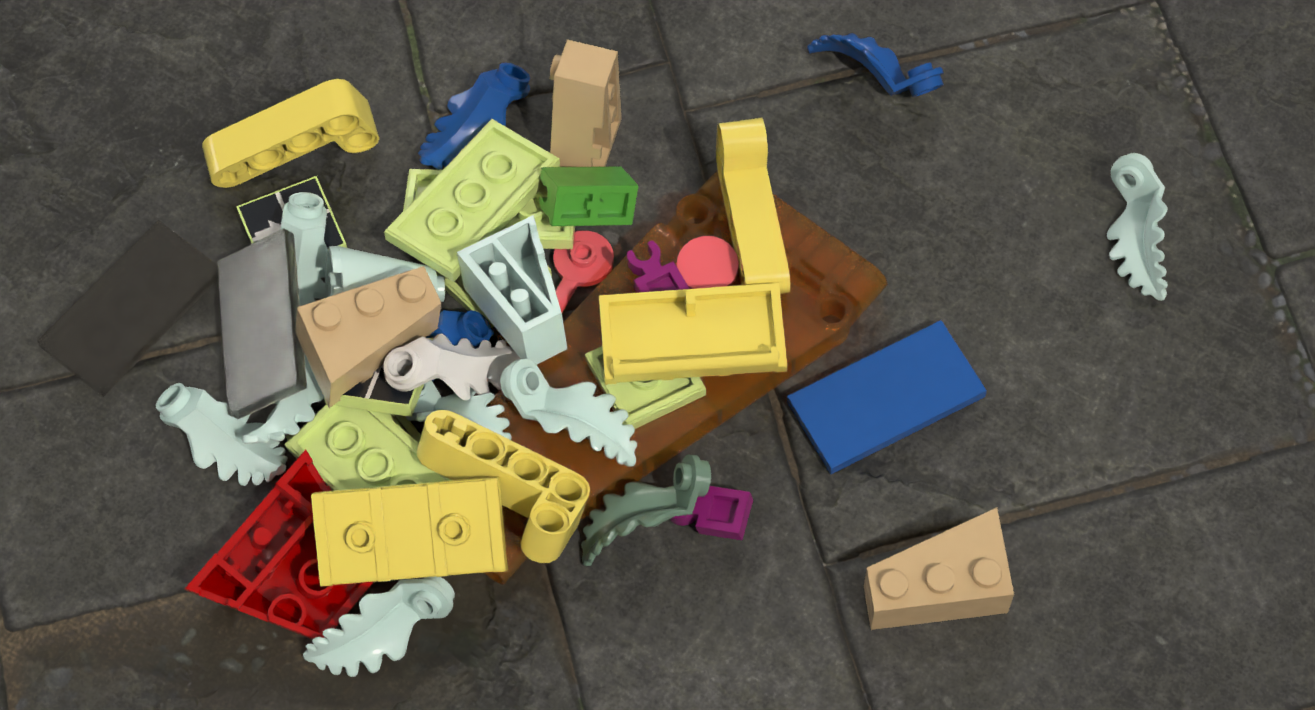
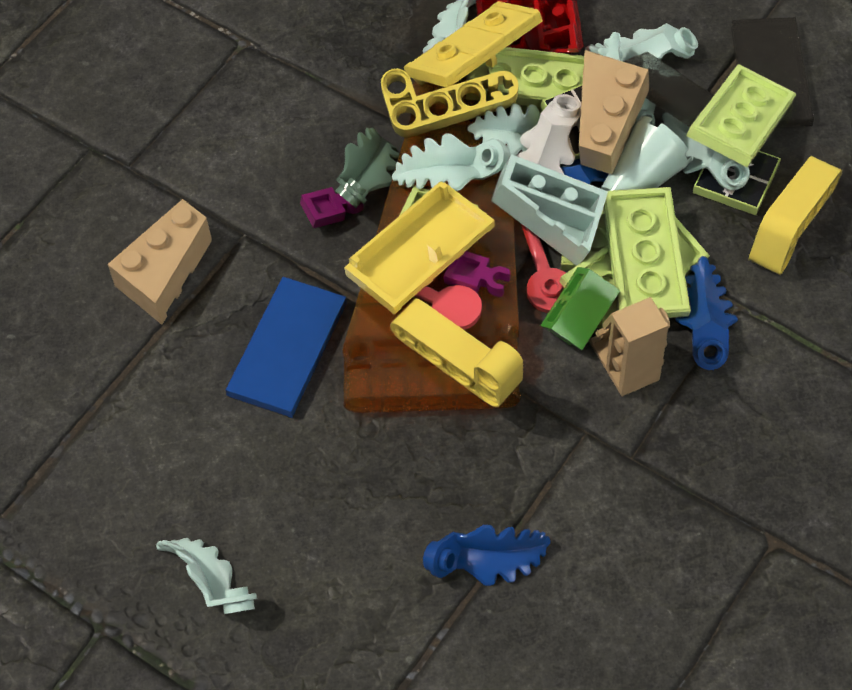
camera: 140 degrees right, 5 degrees down
(236, 244) = (741, 115): none -> yellowish green tile

